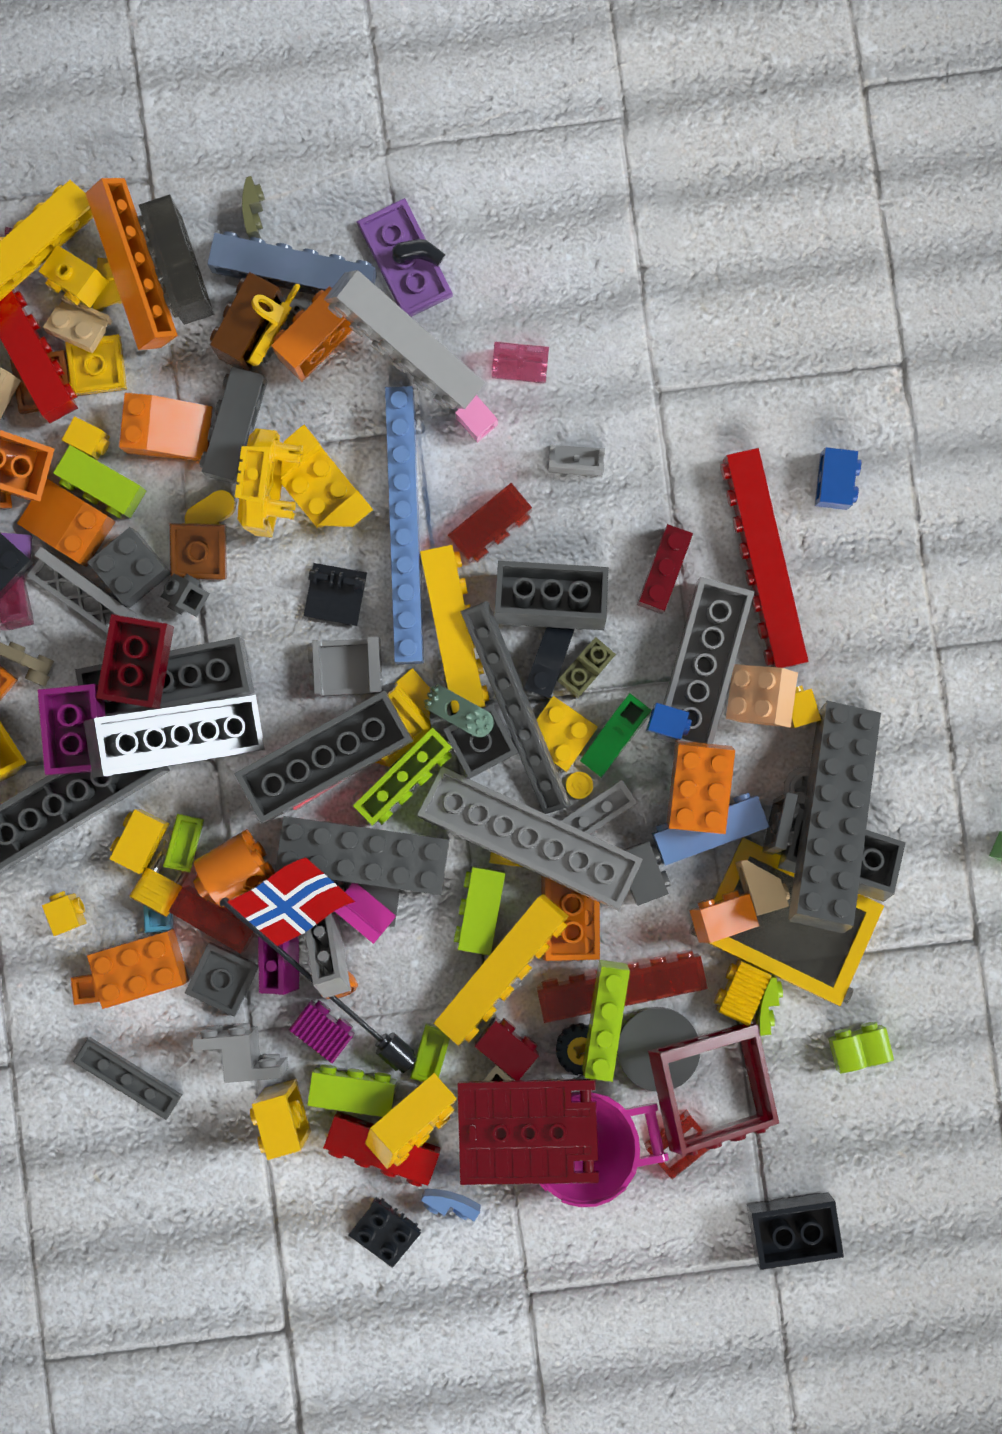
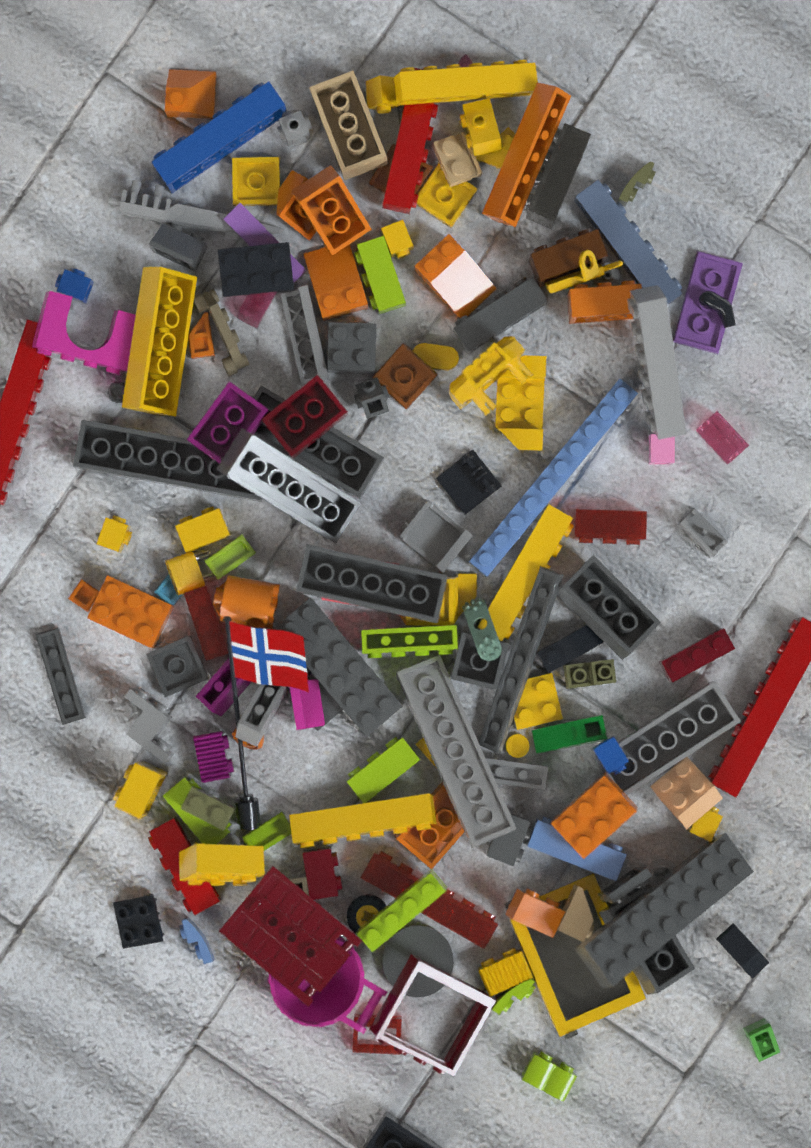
camera: 40 degrees right, 0 degrees up
(355, 1082) = (208, 808): none -> olive brick
(930, 789) = (742, 950): none -> black slope

